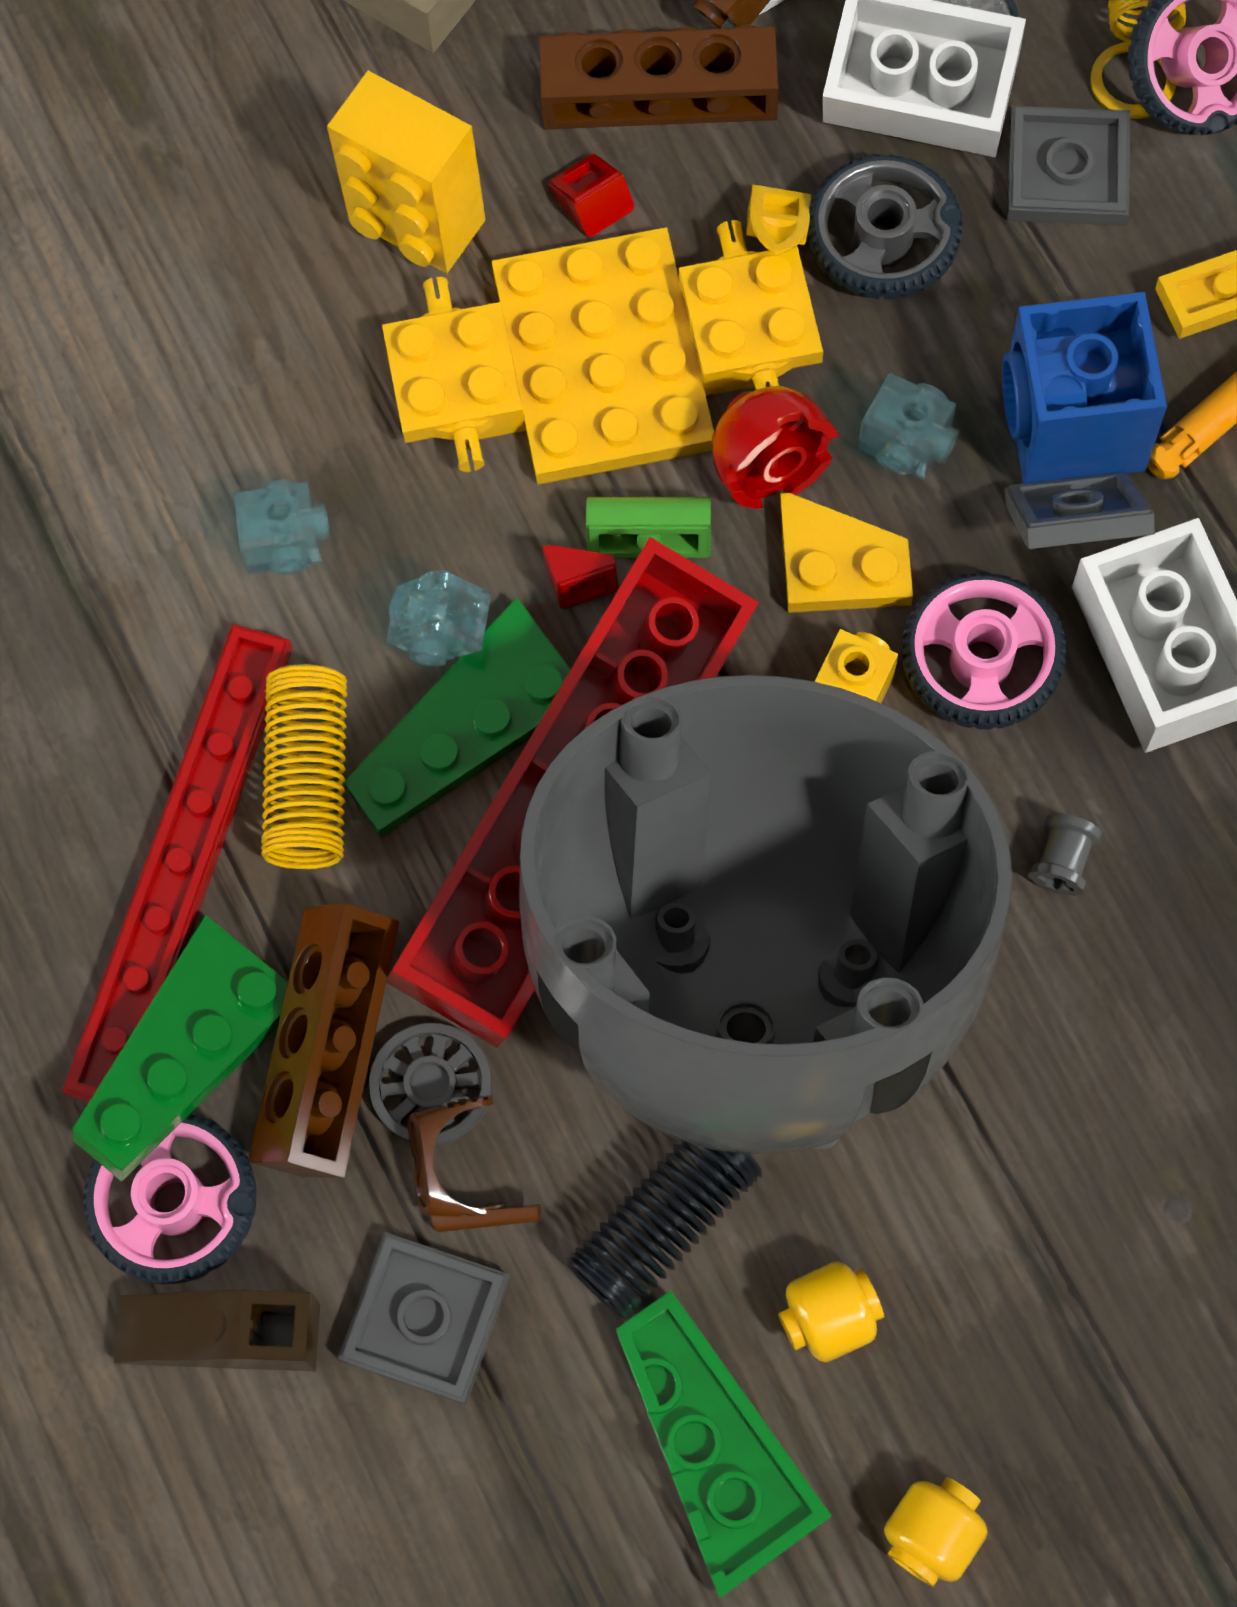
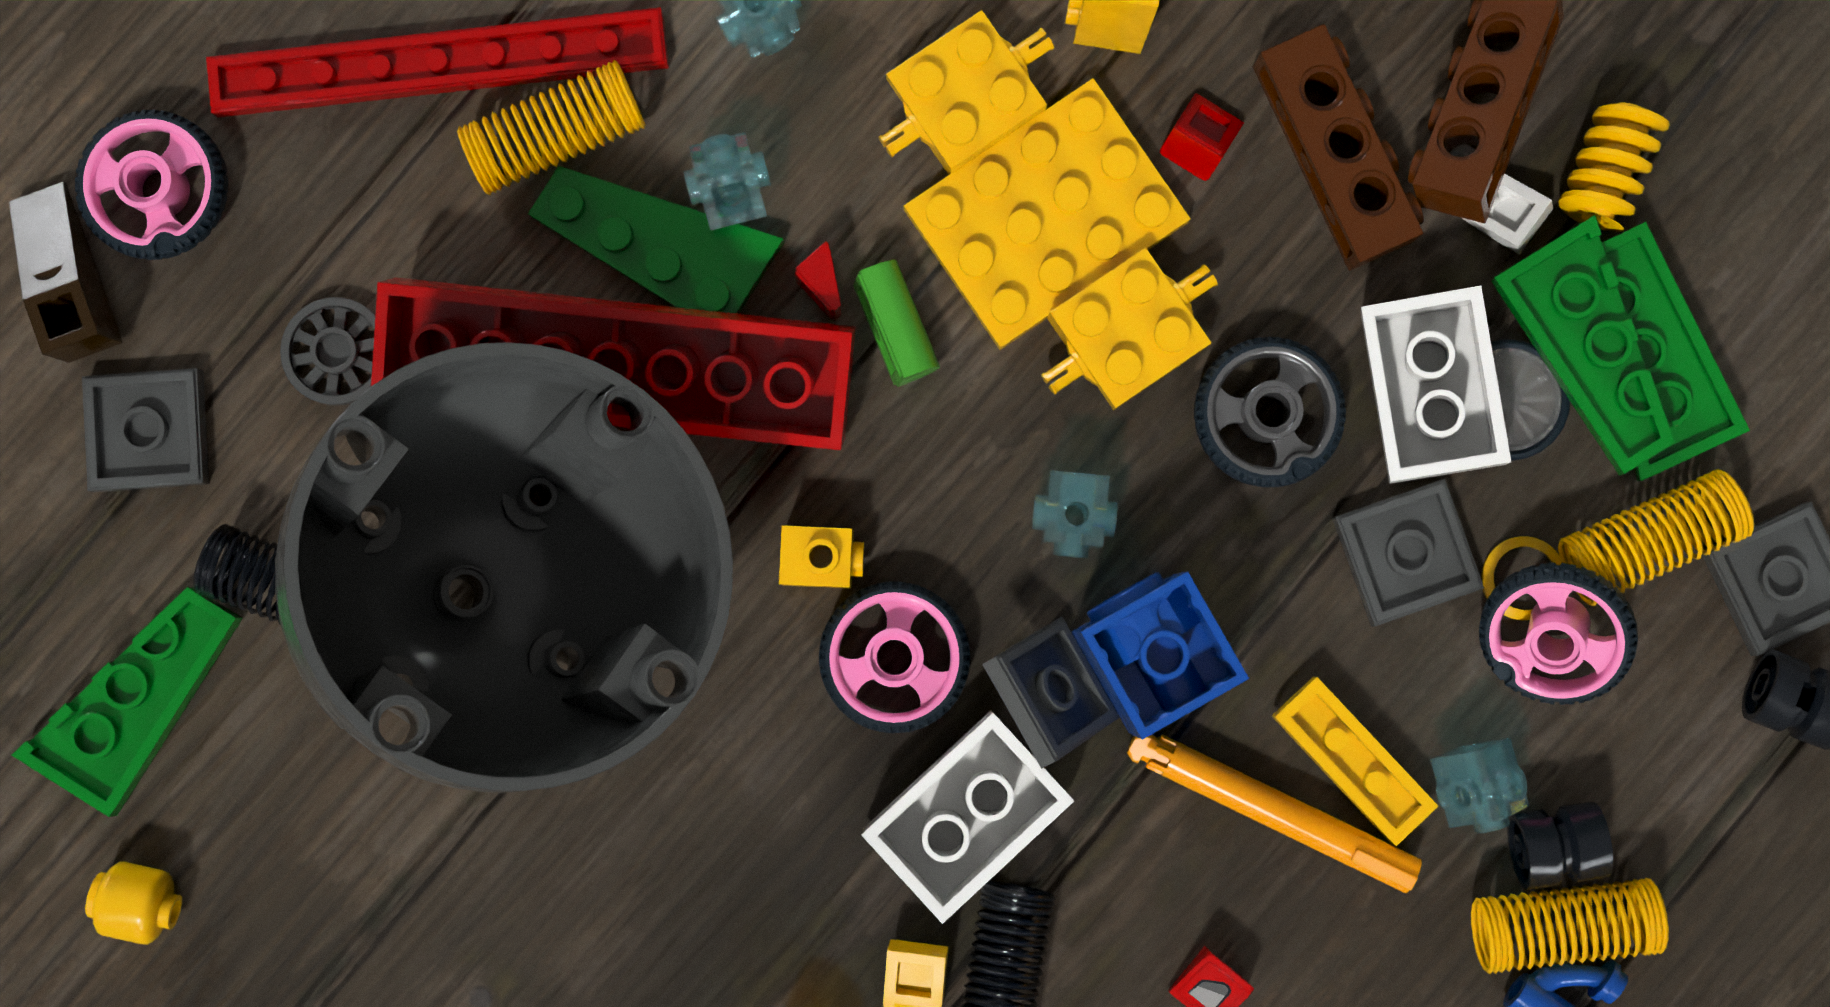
camera: 65 degrees right, 15 degrees up
(189, 1040) = (284, 141): green wing -> none
(324, 1041) = (318, 251): reddish brown brick -> none
(433, 1201) = (237, 401): reddish brown helmet -> none
(771, 444) = (1007, 394): red cylinder -> none
(778, 218) = (1232, 316): yellow plate -> none
(831, 1311) = (269, 753): yellow head -> none
(840, 560) = (934, 499): yellow wing -> none
(1065, 854) = (737, 795): dark grey bush -> none

